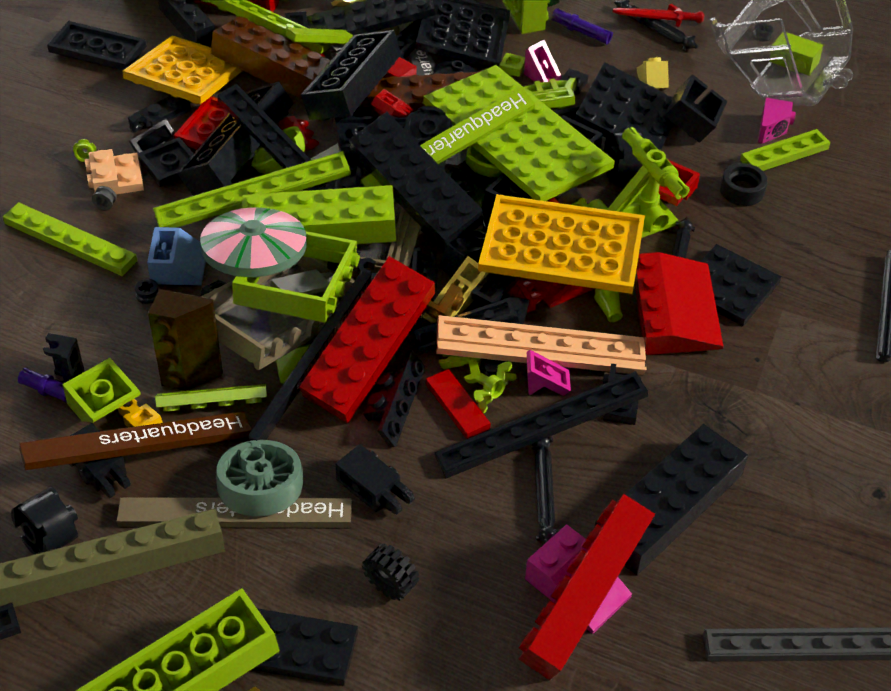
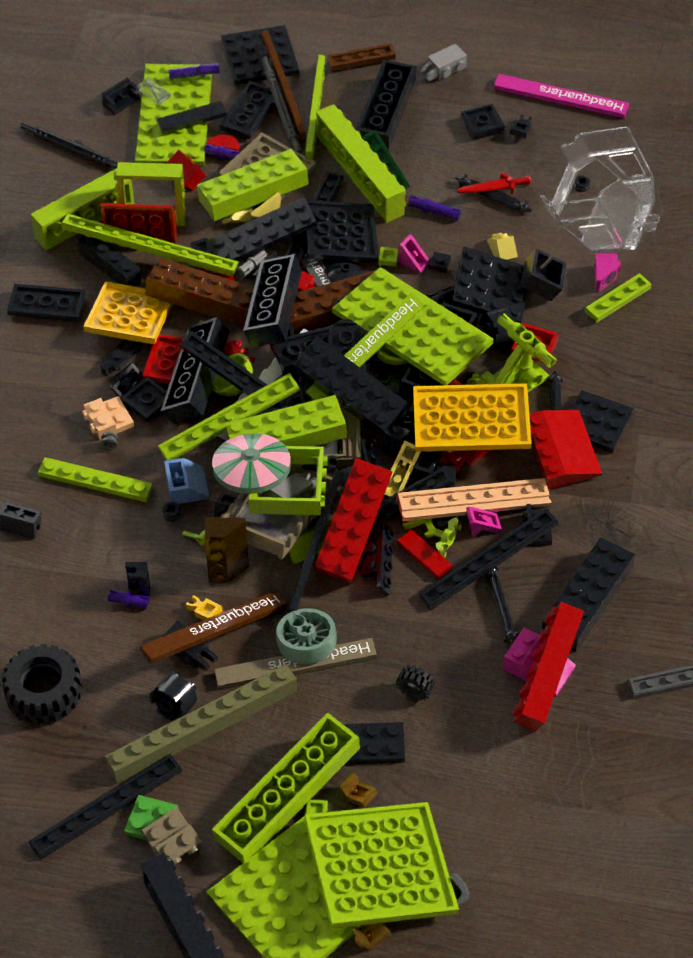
camera: 10 degrees left, 5 degrees up
(78, 149) = (78, 405): lime plate -> none
(99, 391) = (173, 597): lime slope -> none
(200, 398) = (258, 581): lime plate -> none
(325, 36) = (230, 263): lime tile -> none
(372, 480) = (383, 622): black hinge -> none
(389, 103) = (310, 321): red plate -> none
(451, 302) = (401, 478): pearl gold bracket -> none
(554, 92) = (431, 284): lime plate -> none
(609, 303) = (514, 457): lime cone -> none
(740, 195) = (592, 344): black tyre -> none
(805, 53) = (615, 203): lime brick -> none

